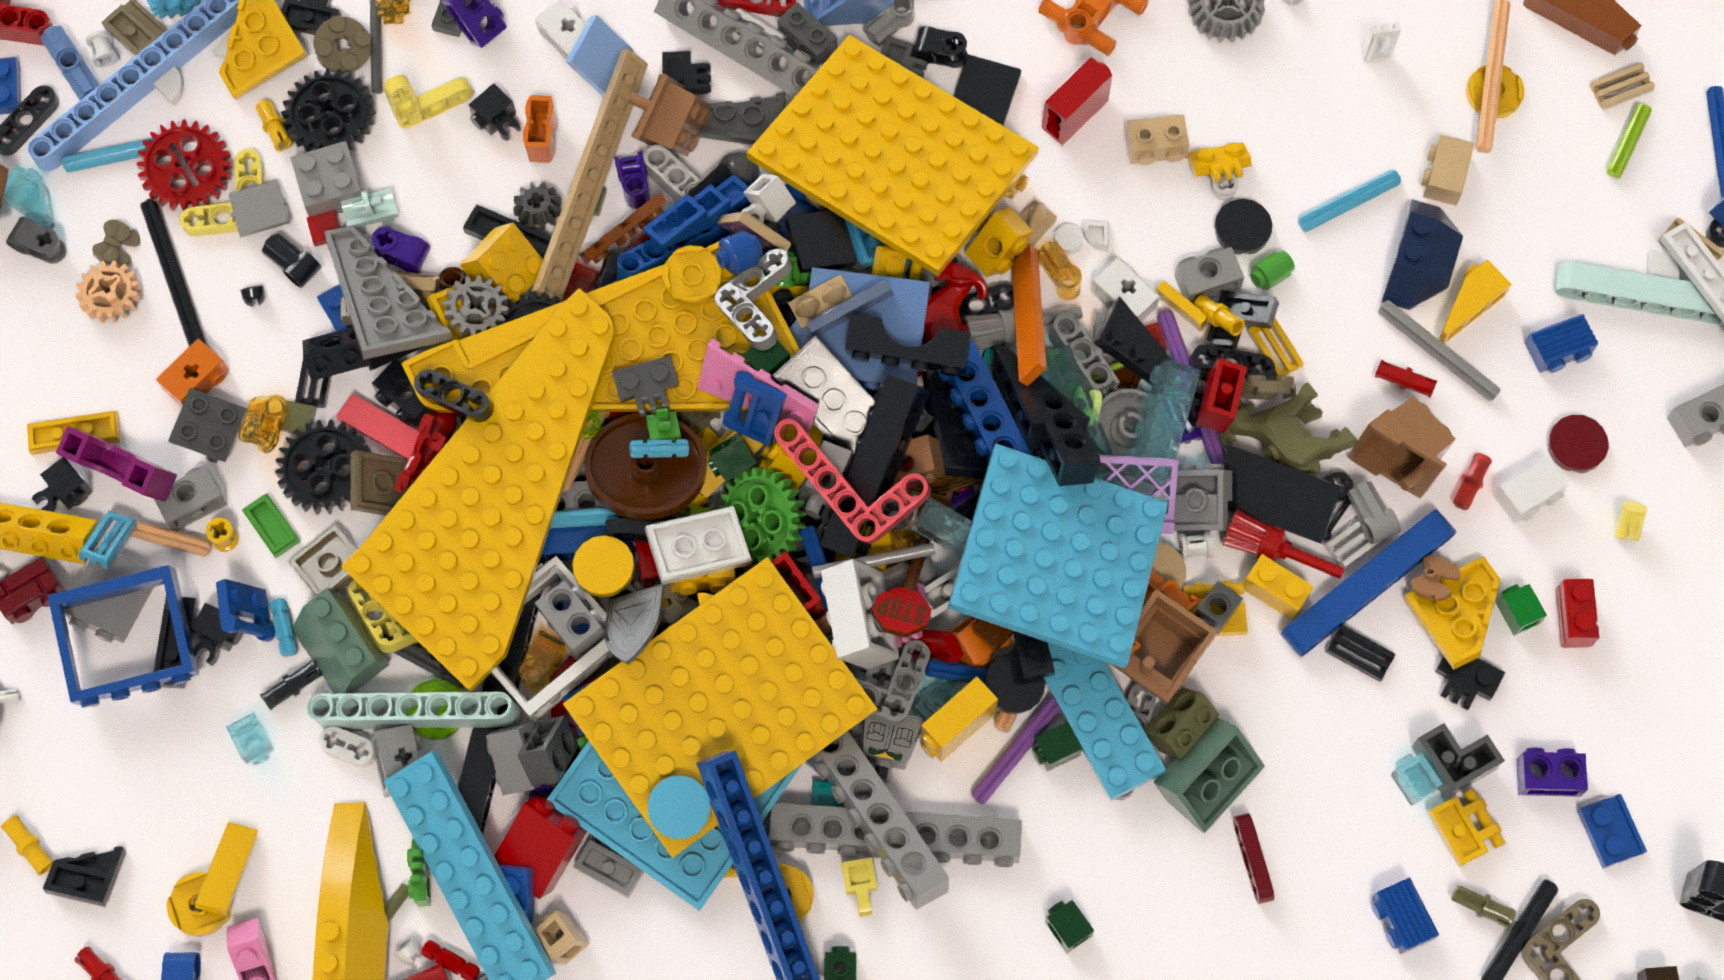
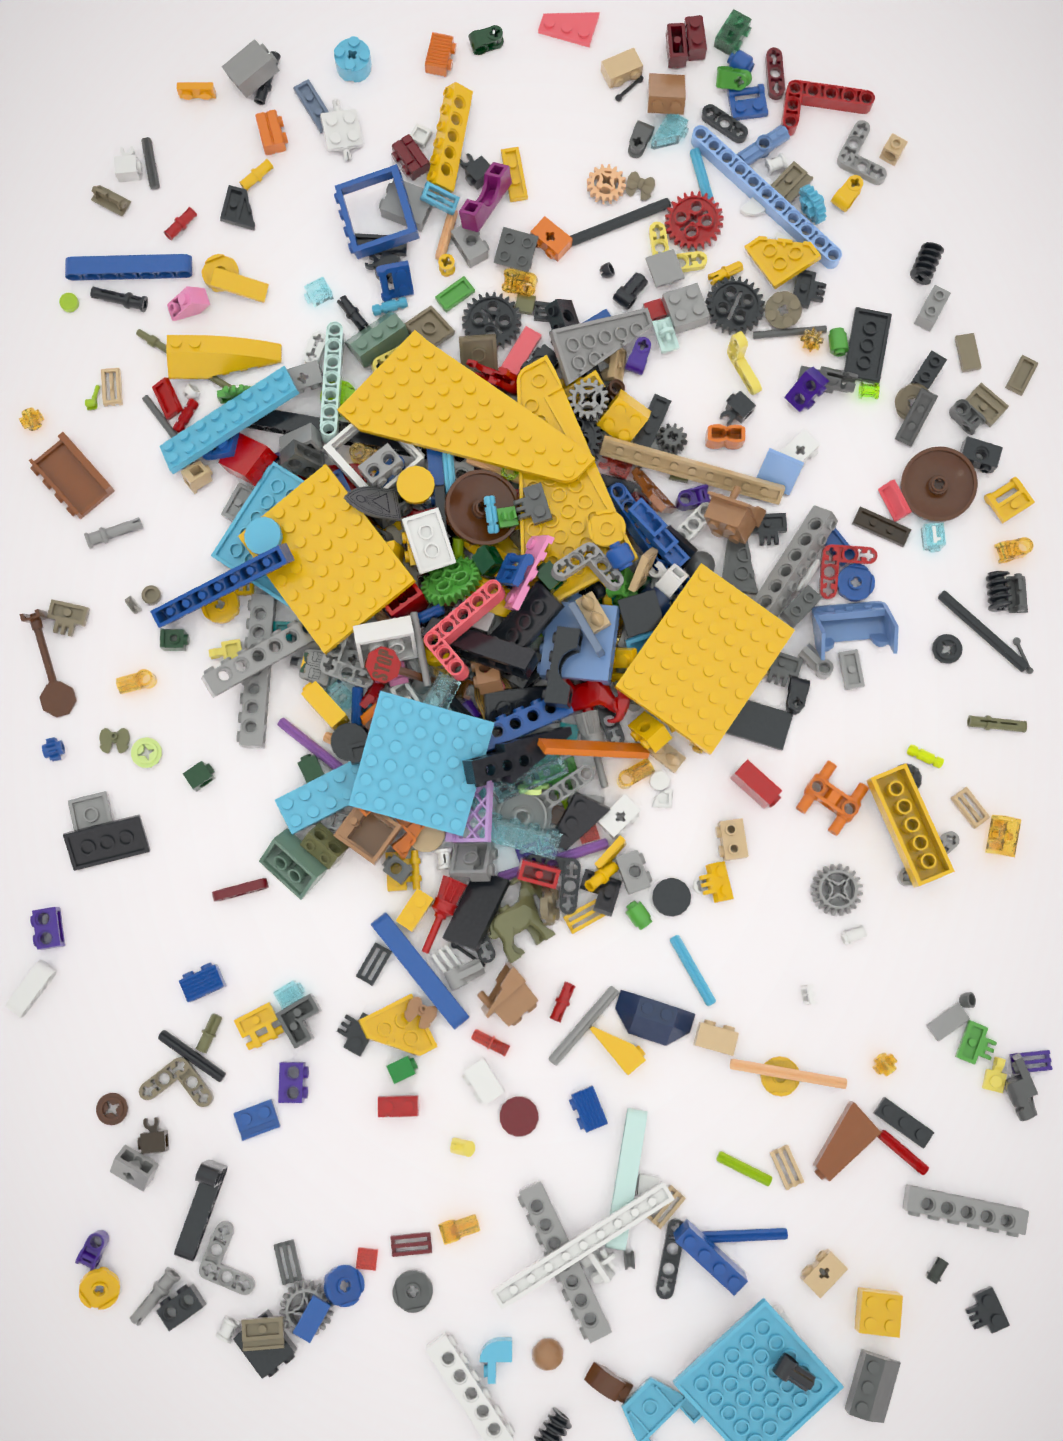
camera: 85 degrees right, 10 degrees up
(459, 406) = (521, 378): black beam -> none

